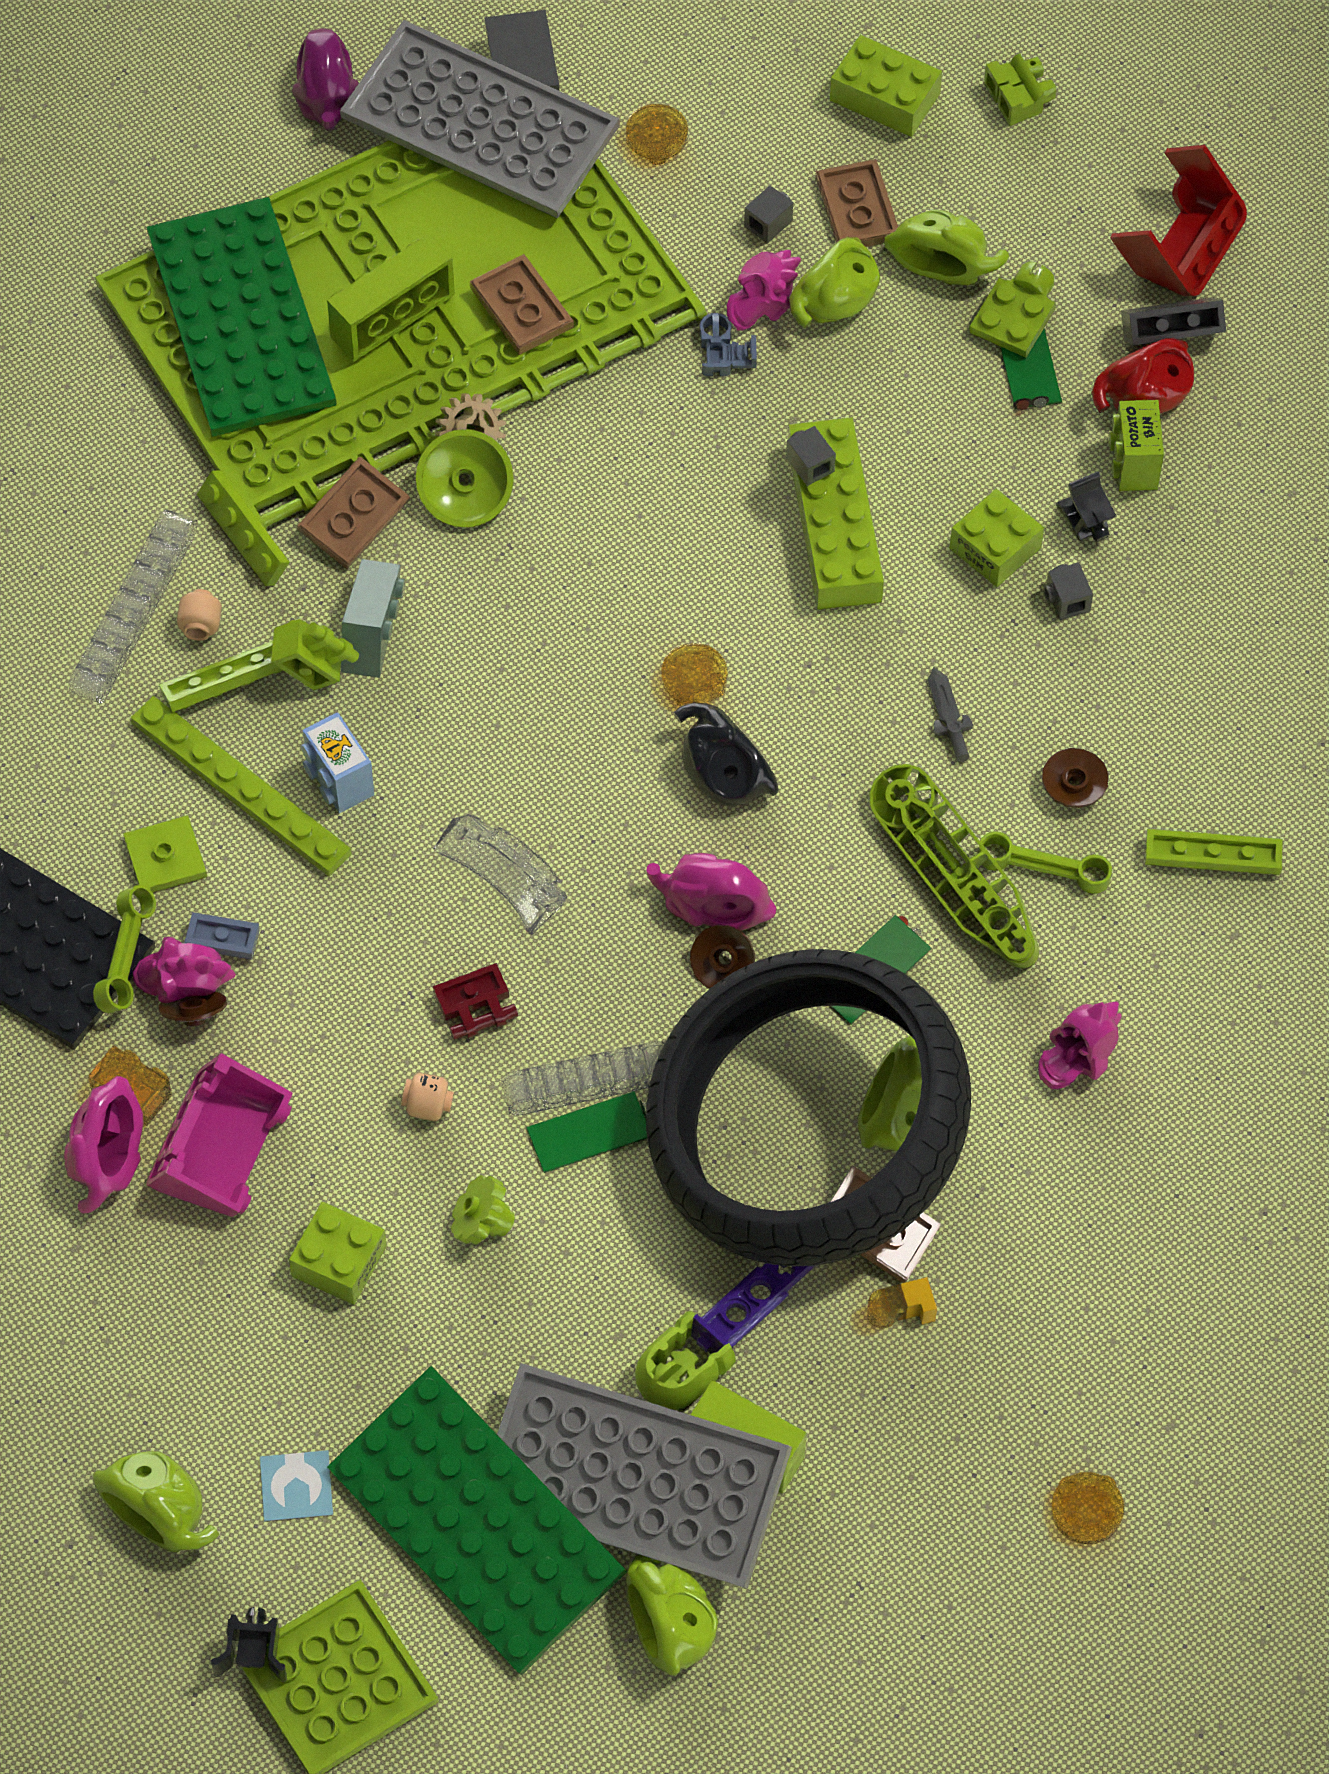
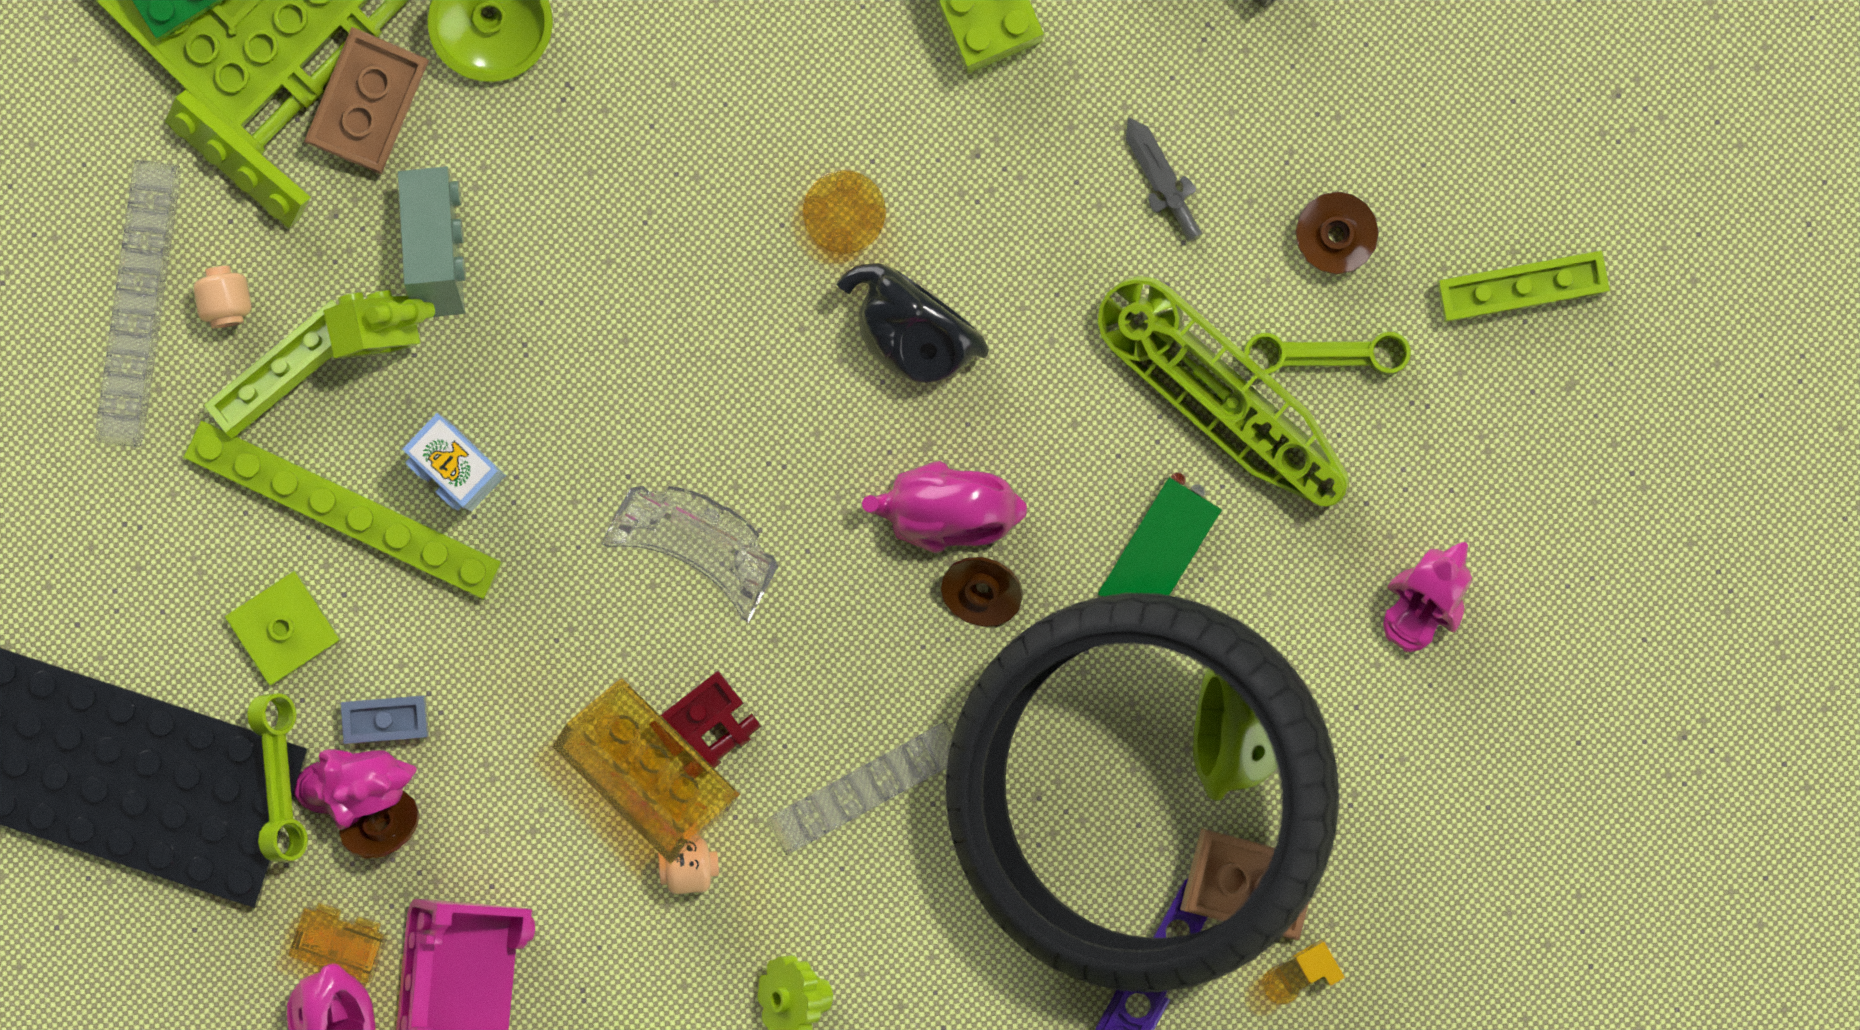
camera: 15 degrees left, 25 degrees up
(417, 1010) = (645, 770): none -> clear yellow brick
(589, 1131) = (884, 847): green piece -> none

